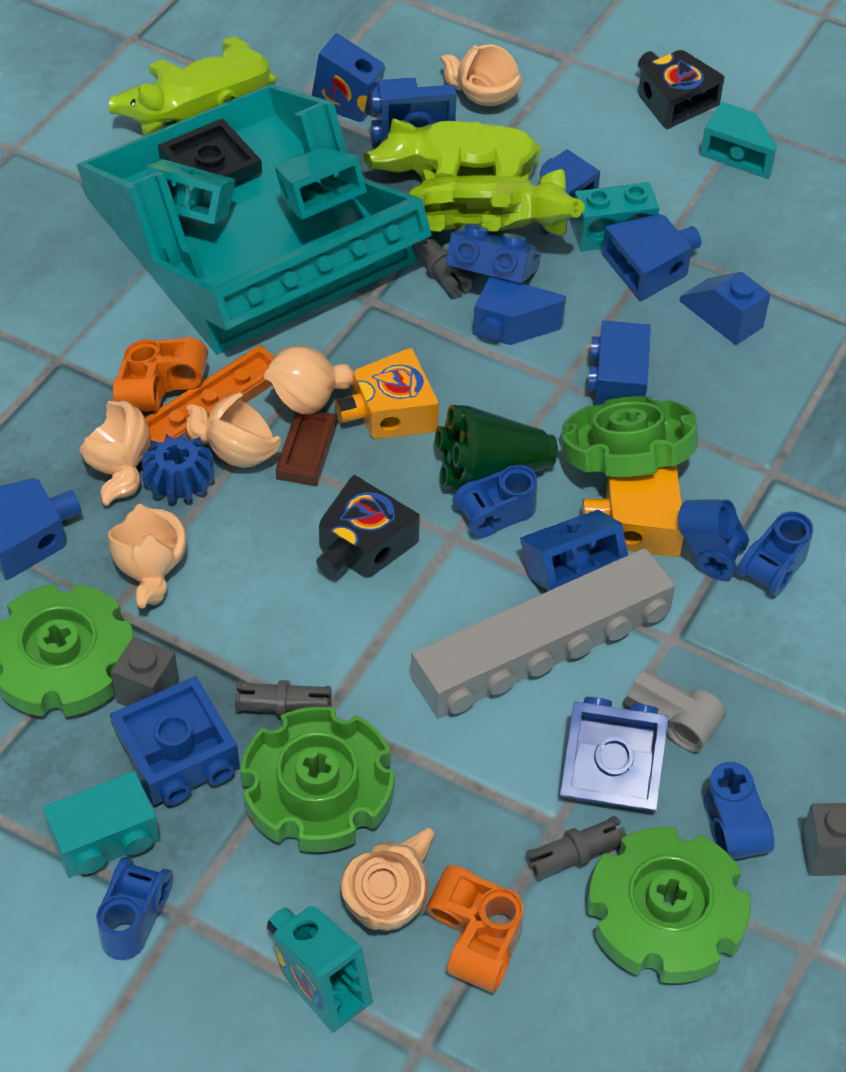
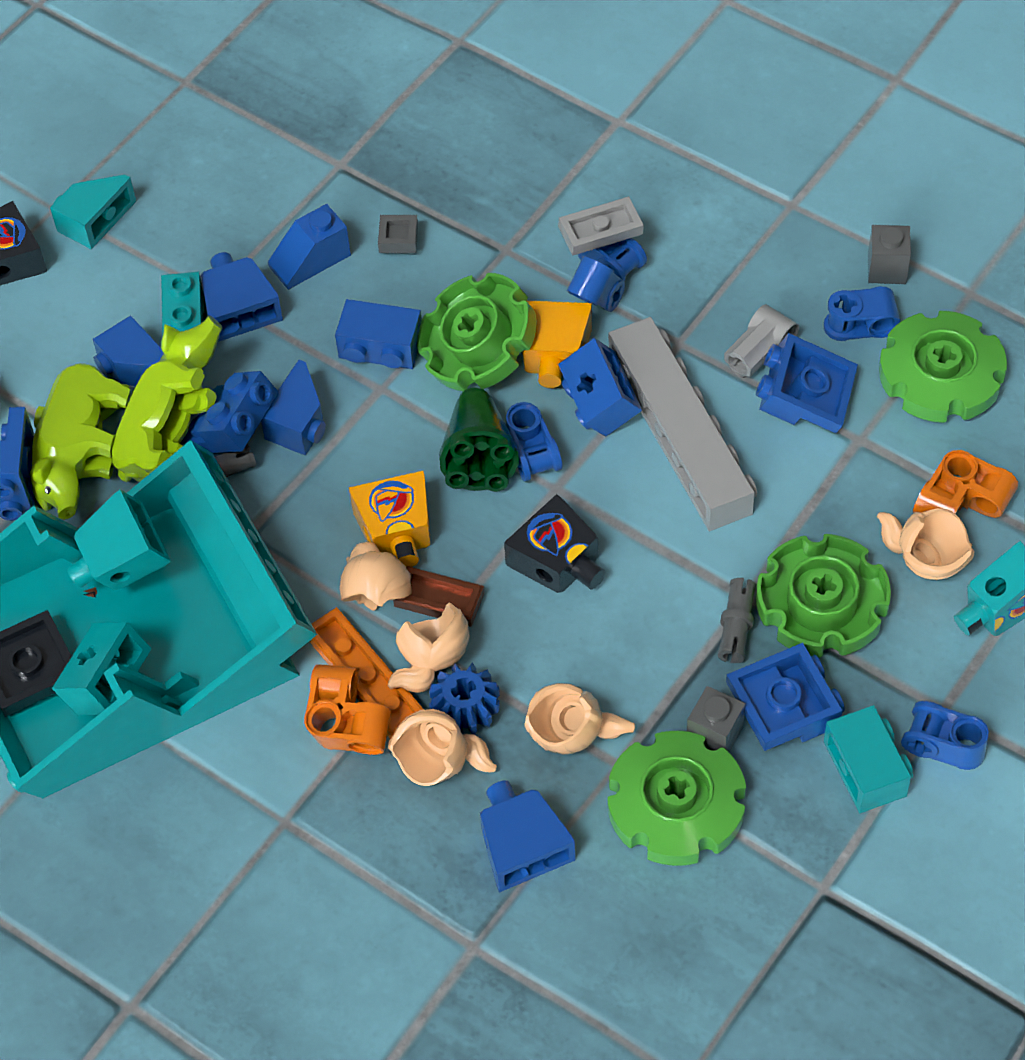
camera: 80 degrees left, 5 degrees up
(575, 848) = (888, 423): dark grey pin -> none
(763, 371) = (398, 234): none -> dark grey plate
(788, 523) = (600, 226): none -> light grey plate

